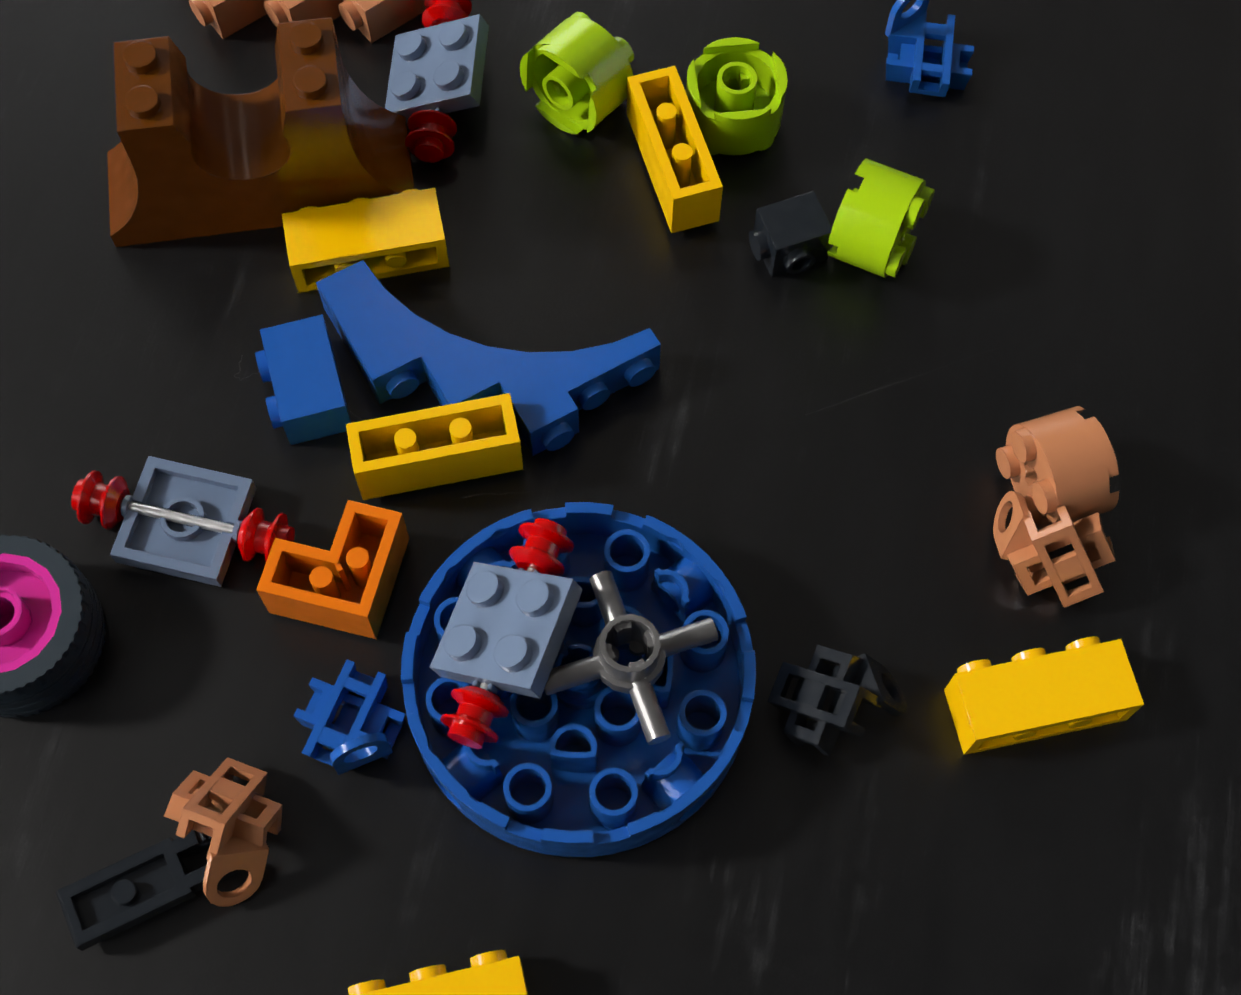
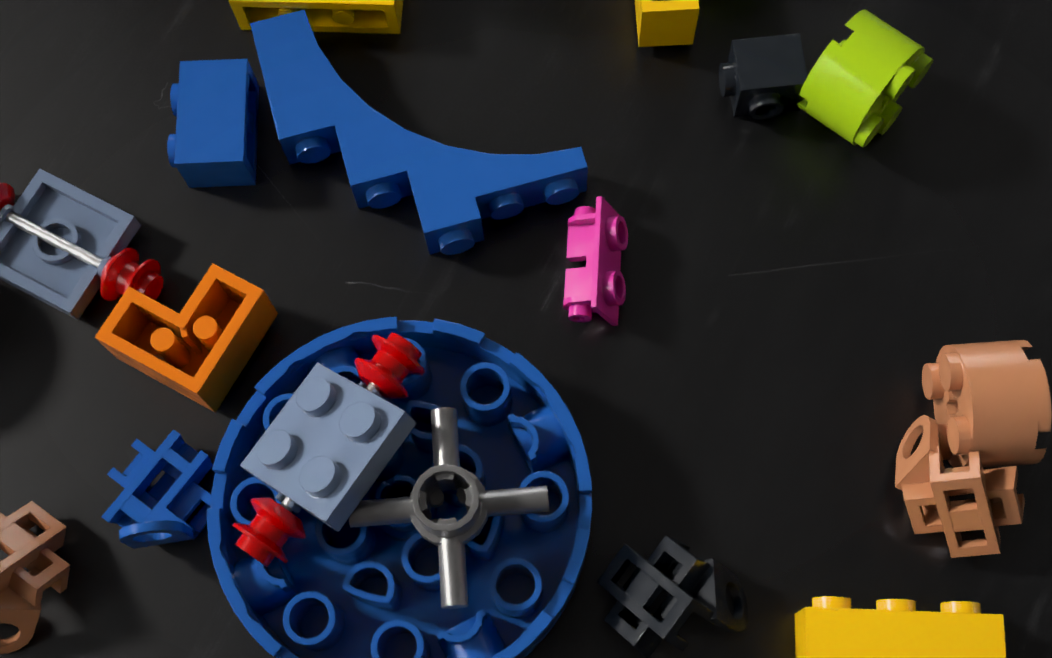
camera: 20 degrees right, 5 degrees up
(435, 446) = (323, 224): yellow brick -> none
(696, 446) = (600, 286): none -> dark pink hinge

